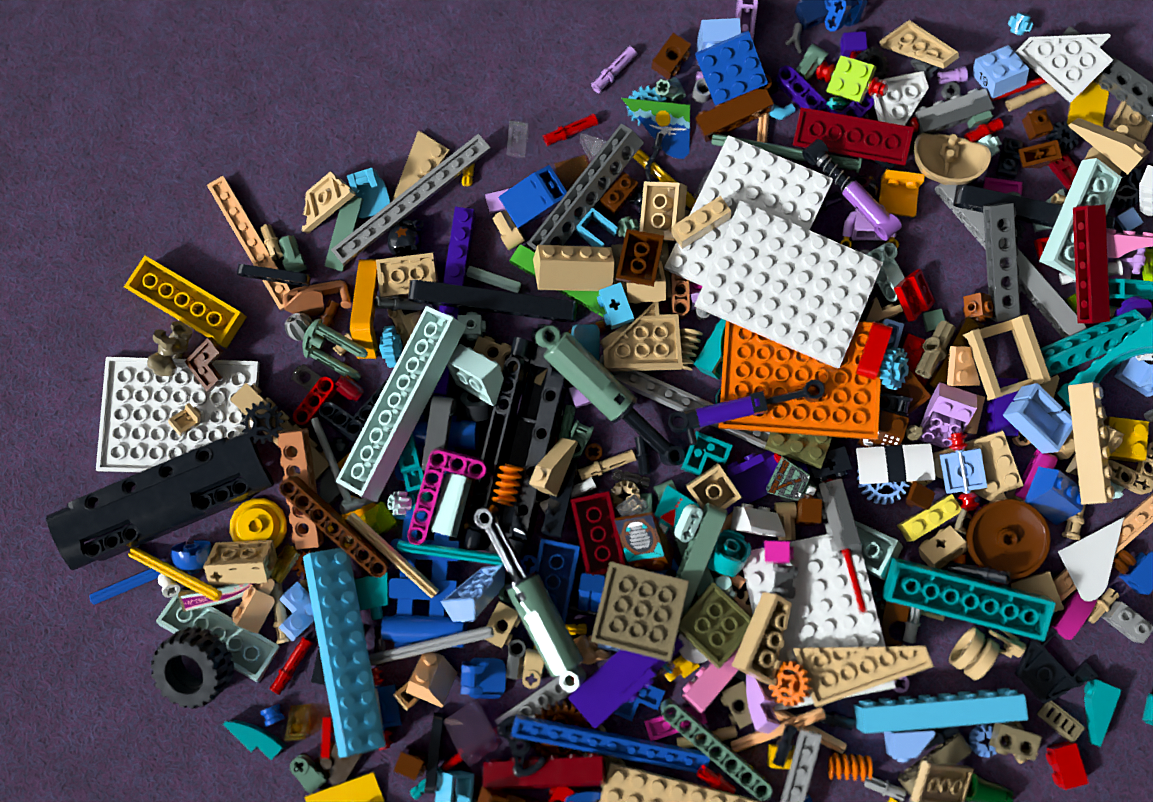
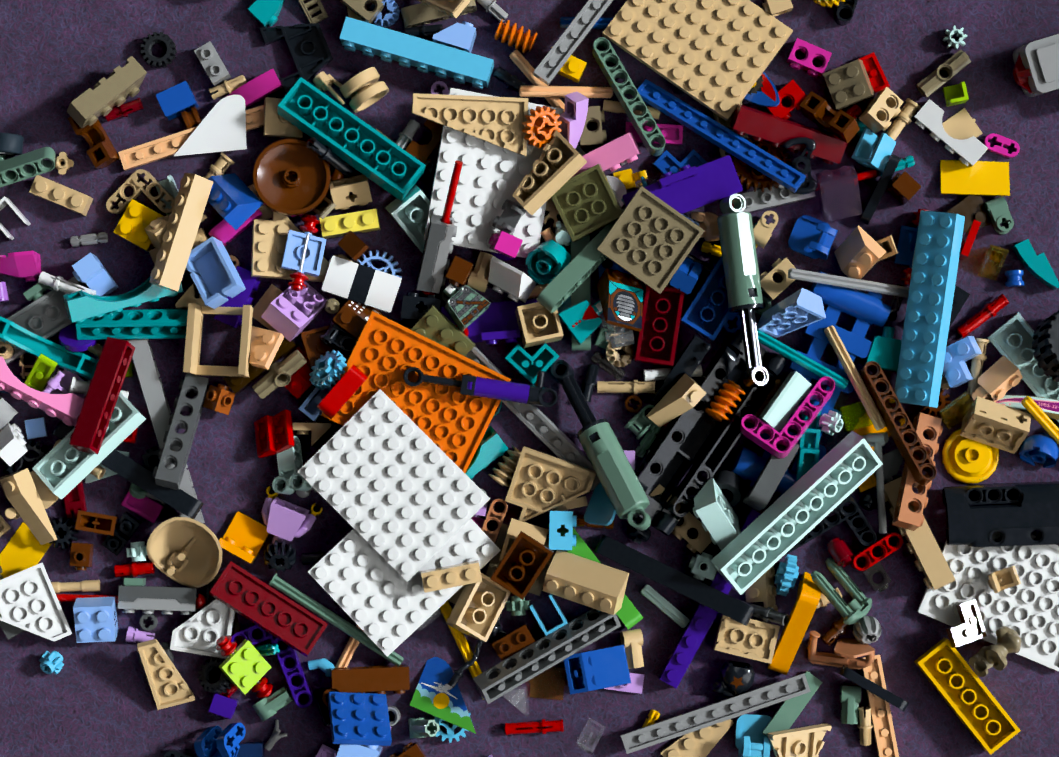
camera: 160 degrees left, 5 degrees up
(269, 415) = (936, 553): black gear -> none
(515, 661) = (777, 242): dark grey piece -> none
(688, 523) = (575, 301): light aqua beam -> none
(715, 780) = (638, 70): red pin -> none
(784, 745) = (567, 76): black pin -> none
(884, 224) = (280, 512): piece -> none
(932, 319) = (263, 406): sand green tile -> none

